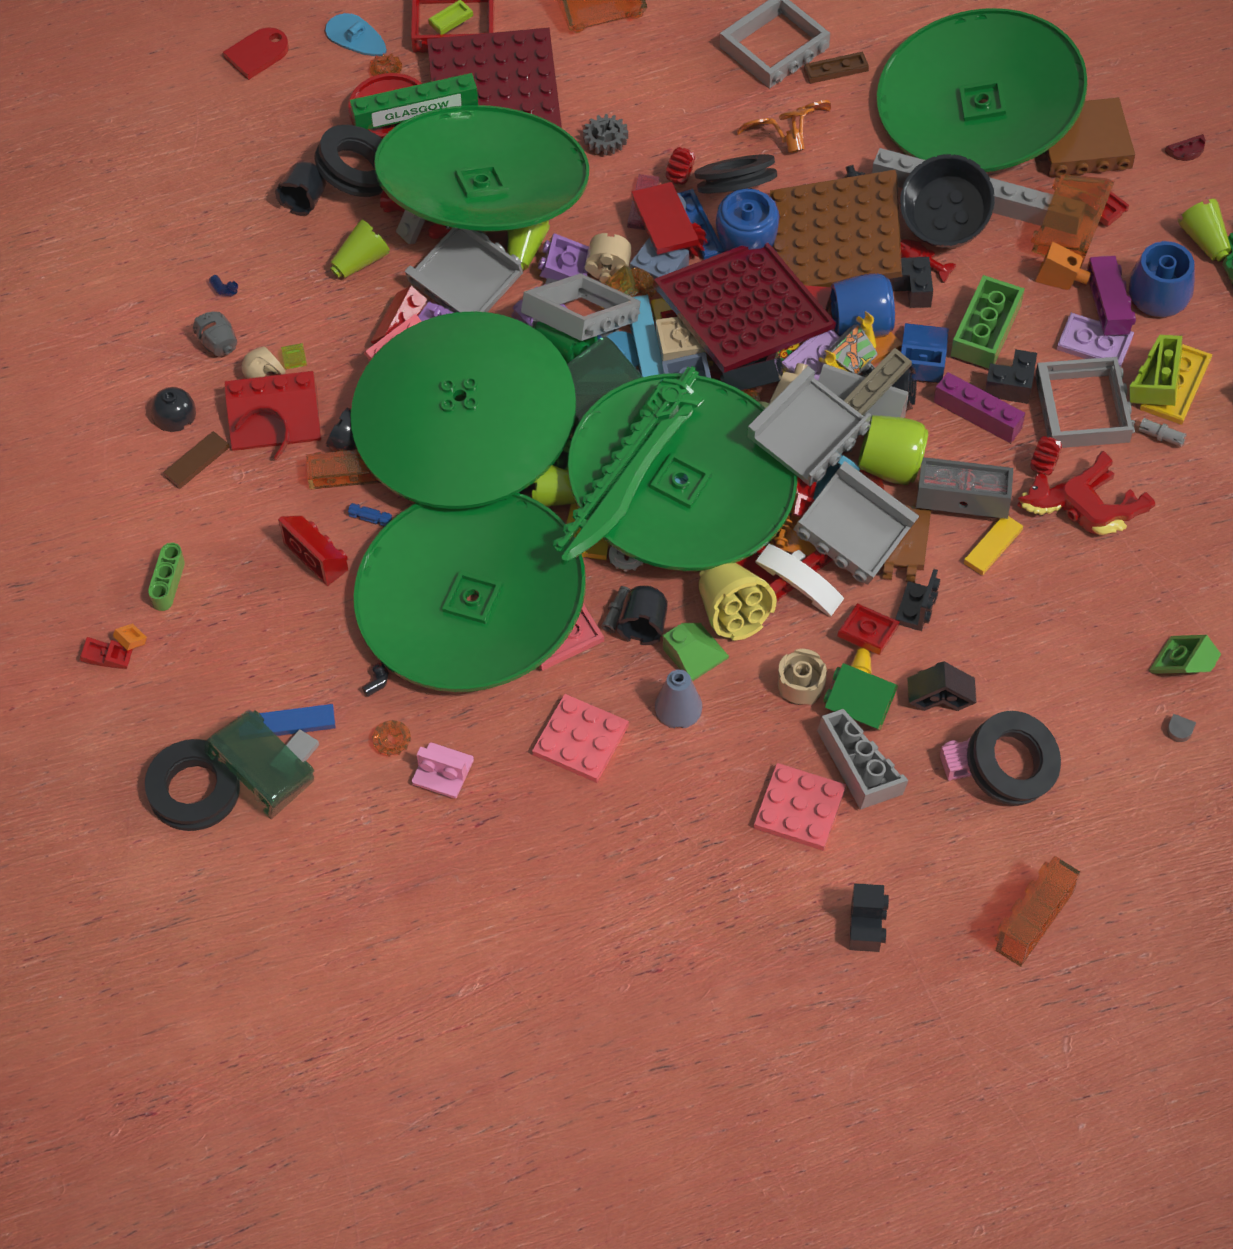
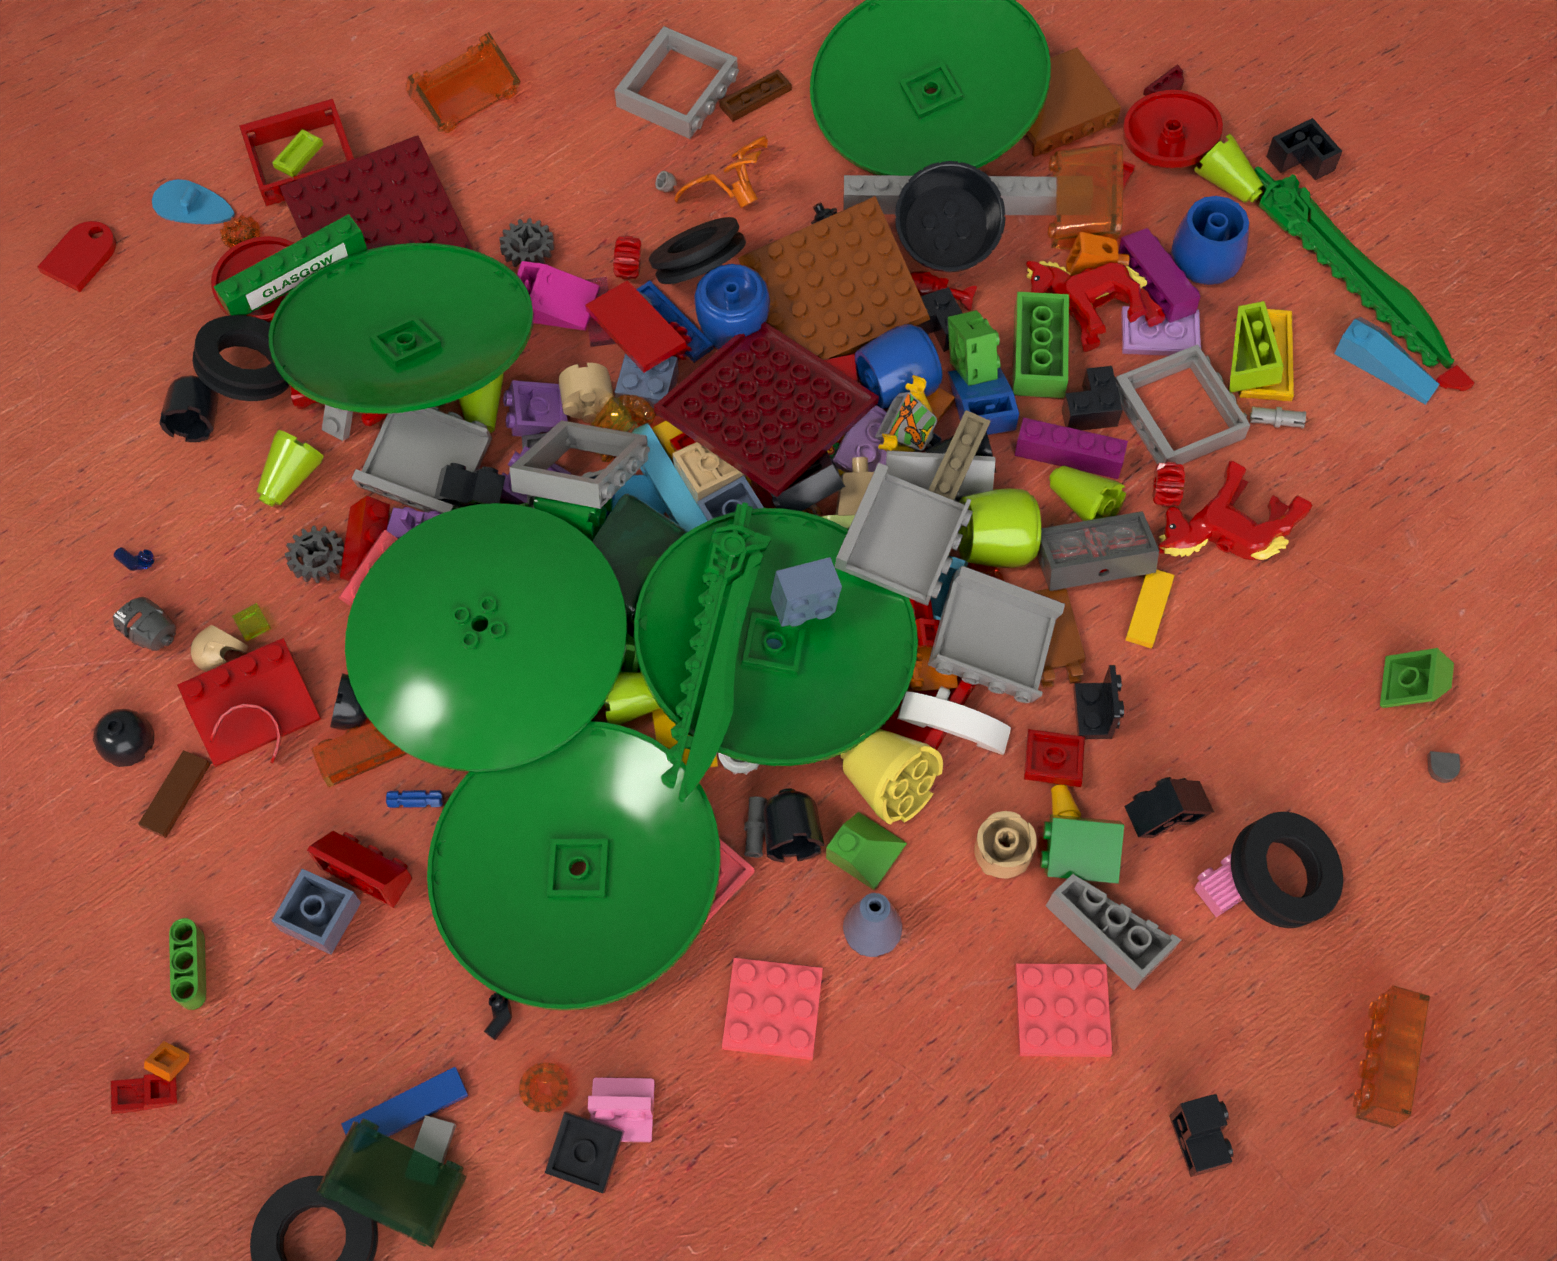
camera: 20 degrees left, 5 degrees up
(270, 568) = (316, 911): none -> sand blue brick
(358, 320) = (315, 554): none -> dark grey gear
(404, 788) = (584, 1152): none -> black tile
(486, 299) = (469, 488): none -> black brick
(612, 179) = (557, 295): none -> dark pink slope
(713, 443) = (805, 592): none -> sand blue brick
(734, 116) = (665, 181): none -> light grey hinge
(928, 308) = (973, 347): none -> bright green piece
(978, 444) = (1087, 493): none -> lime cone
(1050, 292) = (1092, 290): none -> red animal
(1172, 182) = (1172, 128): none -> red dish

